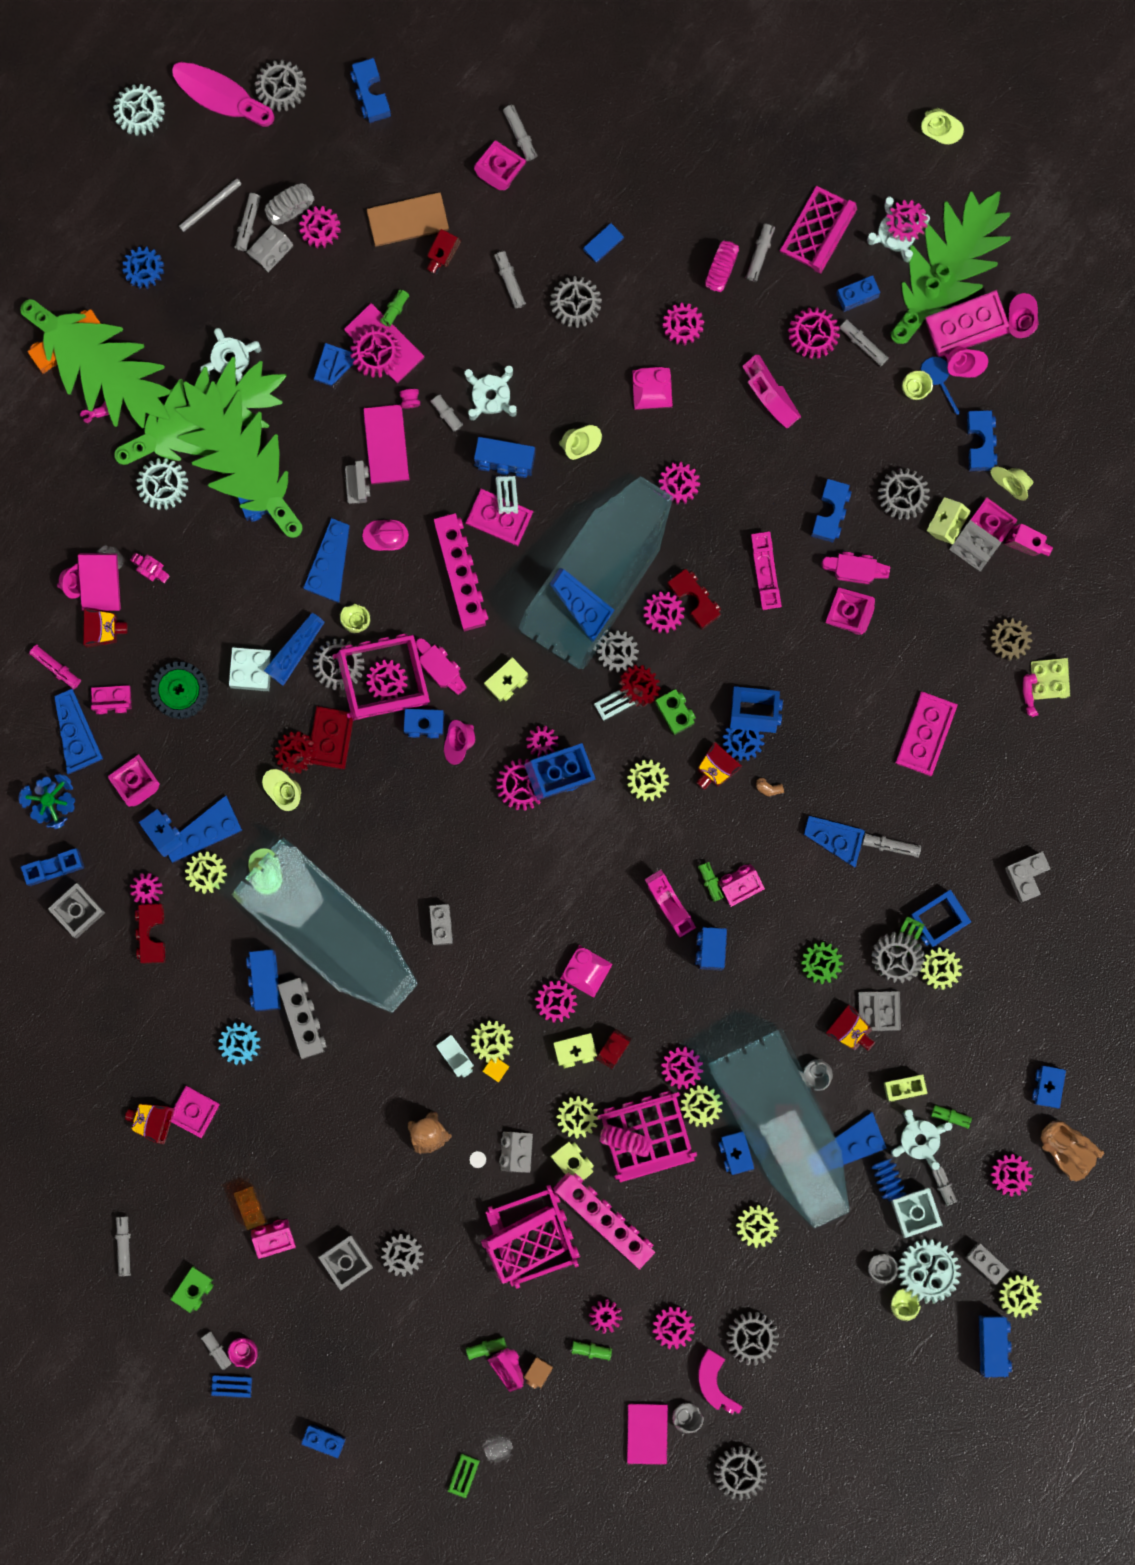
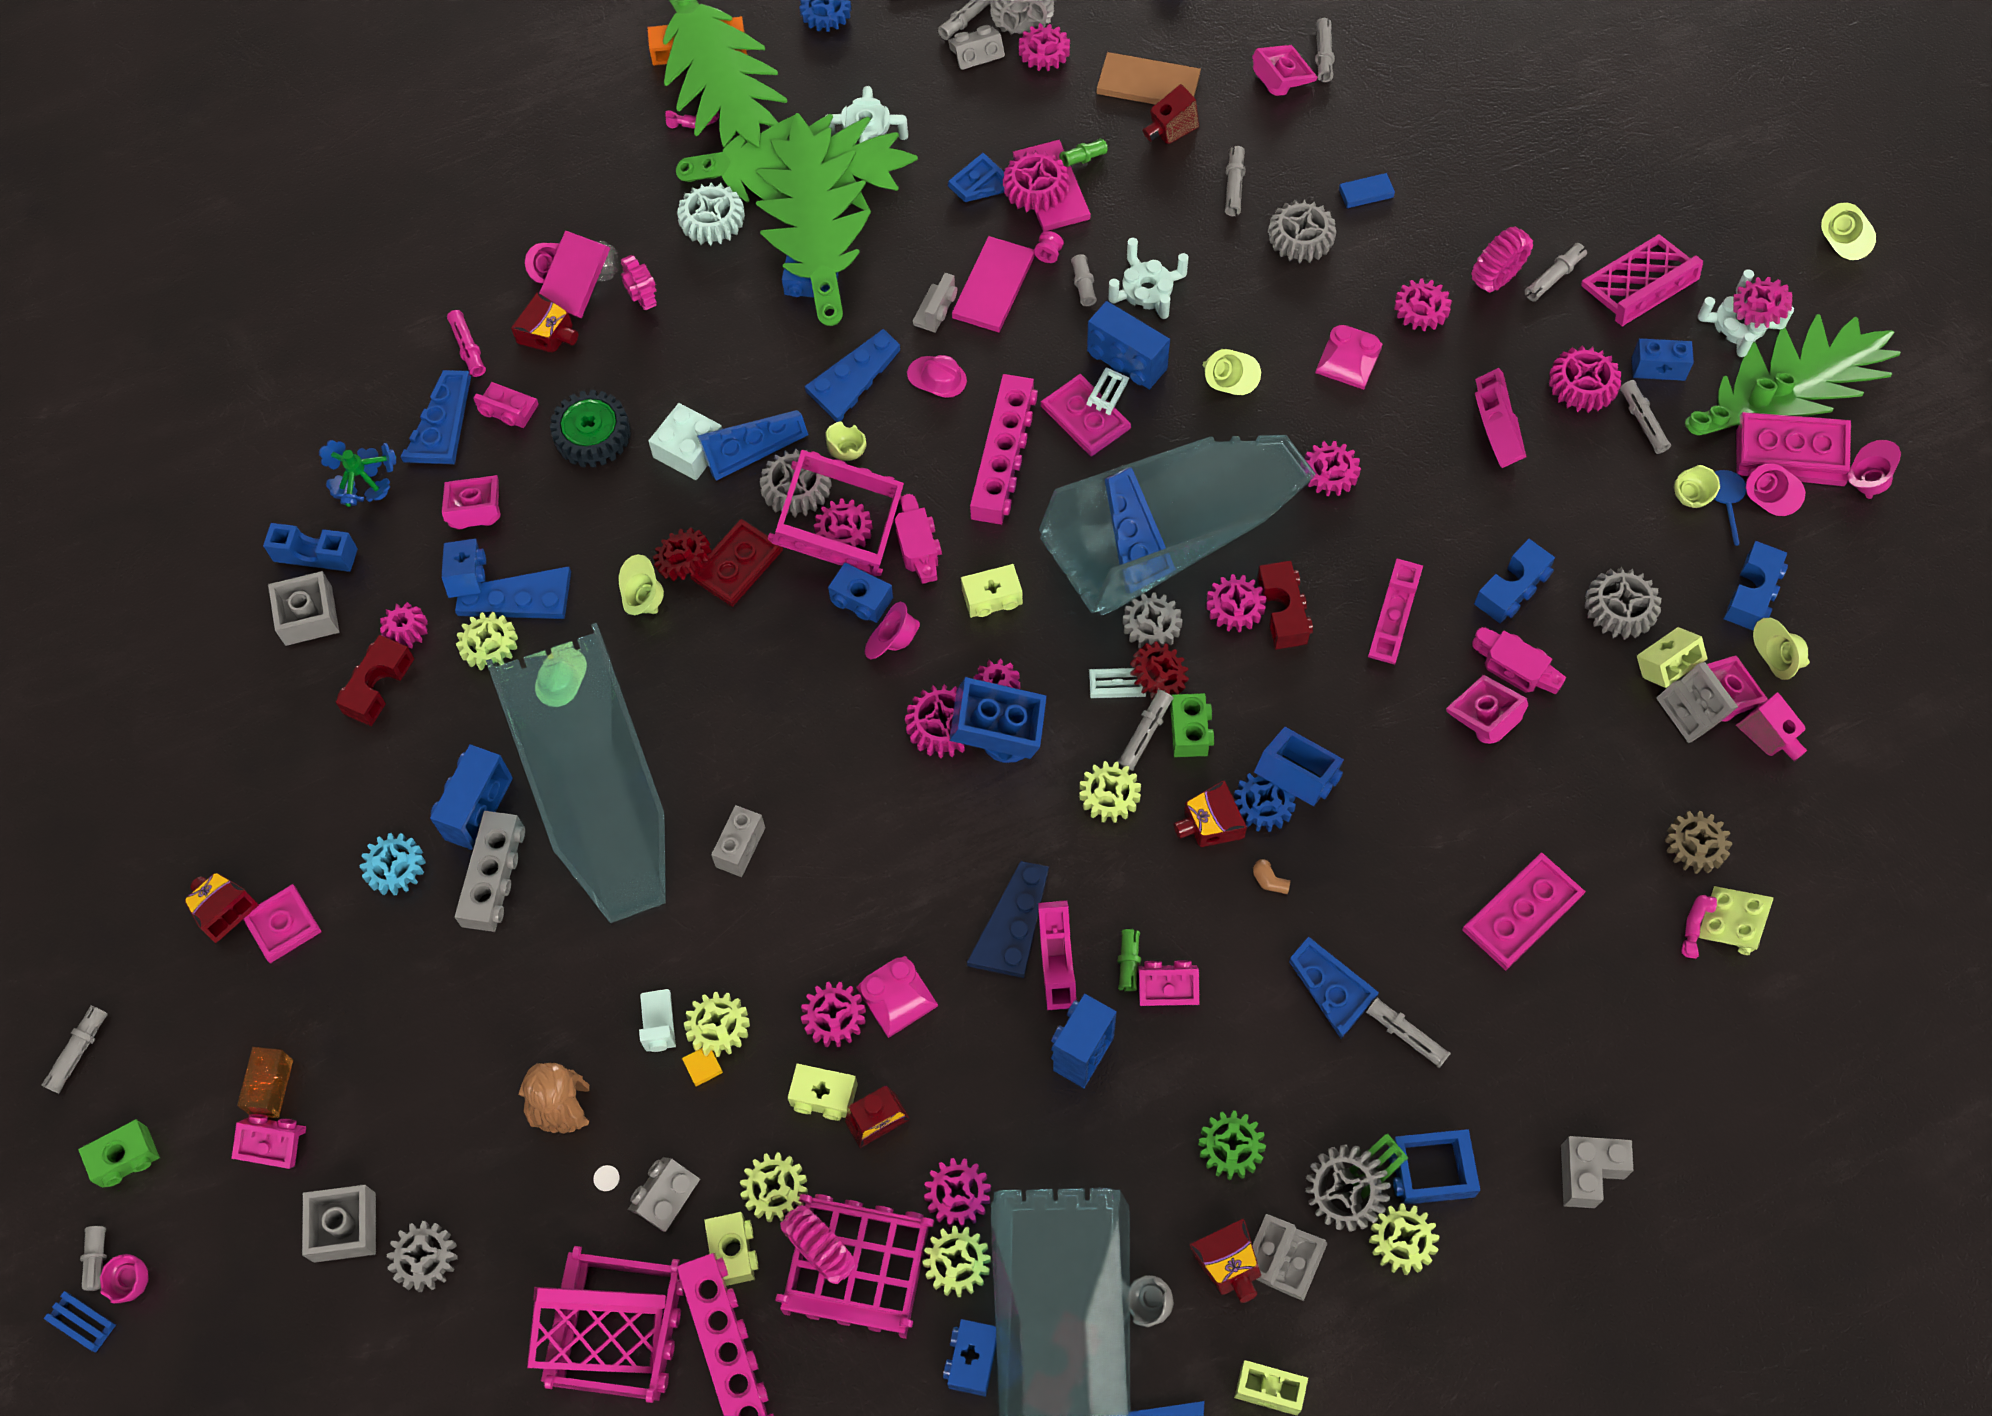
camera: 30 degrees right, 20 degrees down
(632, 897) = (1011, 929): none -> dark blue wing
(650, 730) = (1145, 729): none -> light grey pin

